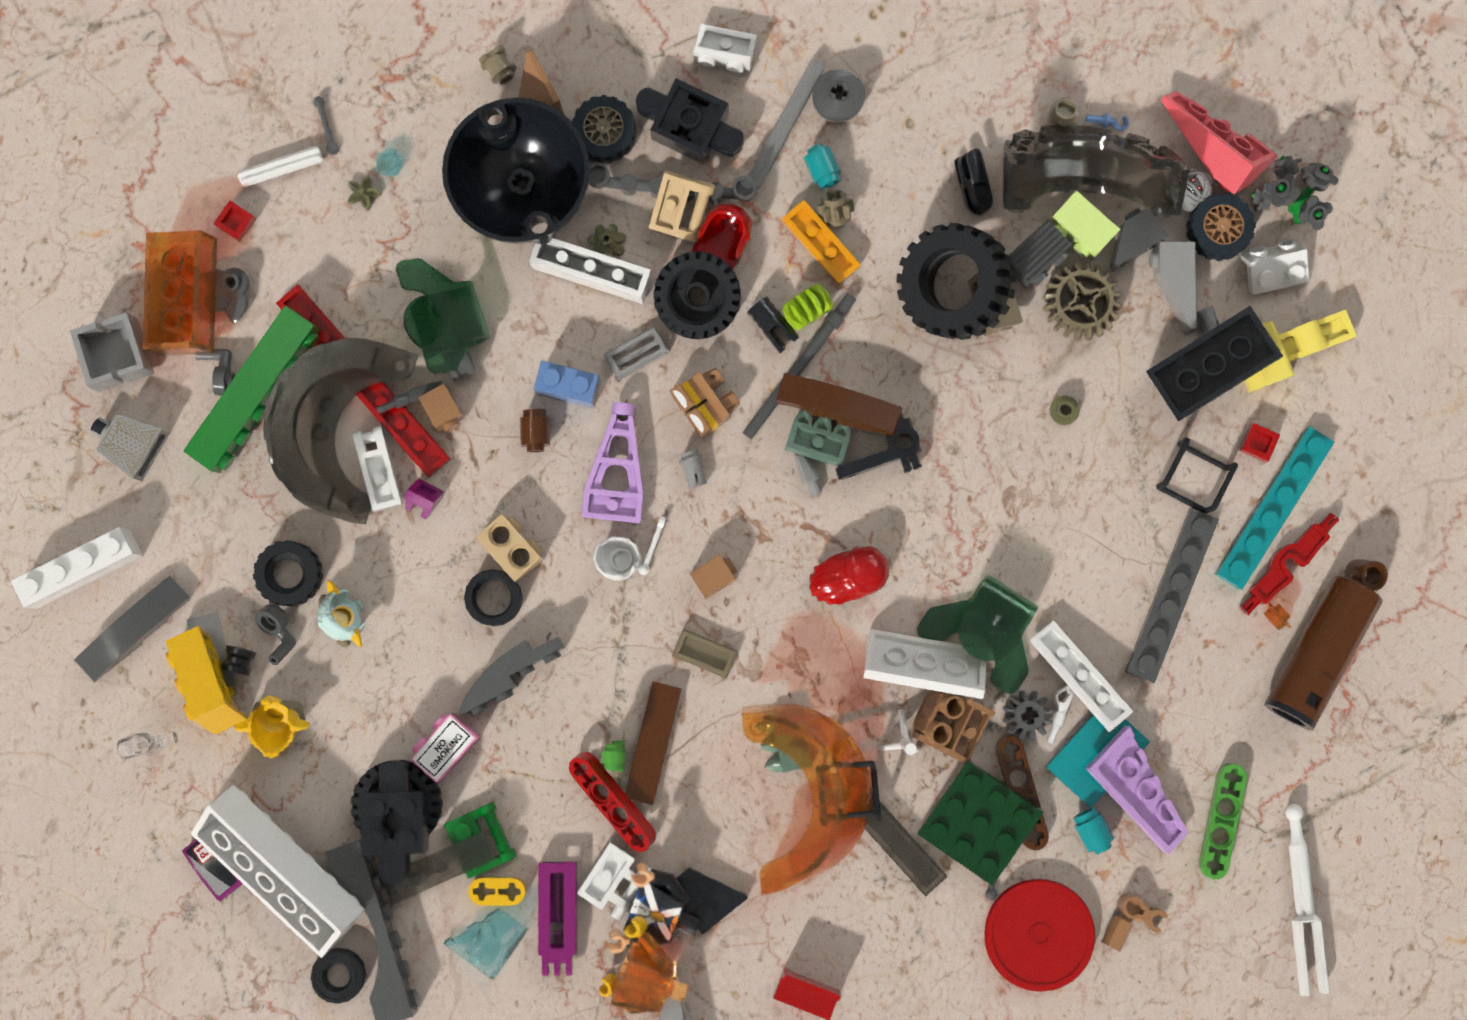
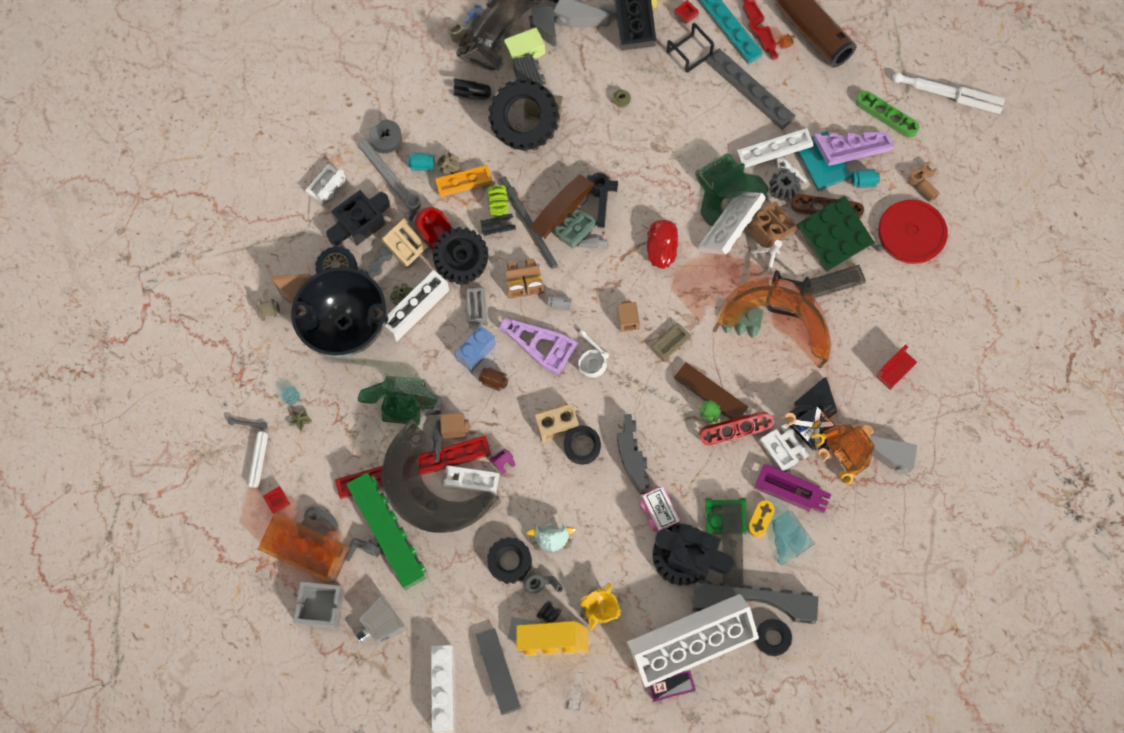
camera: 60 degrees left, 15 degrees down
(1076, 292) = (577, 64): dark tan gear -> none

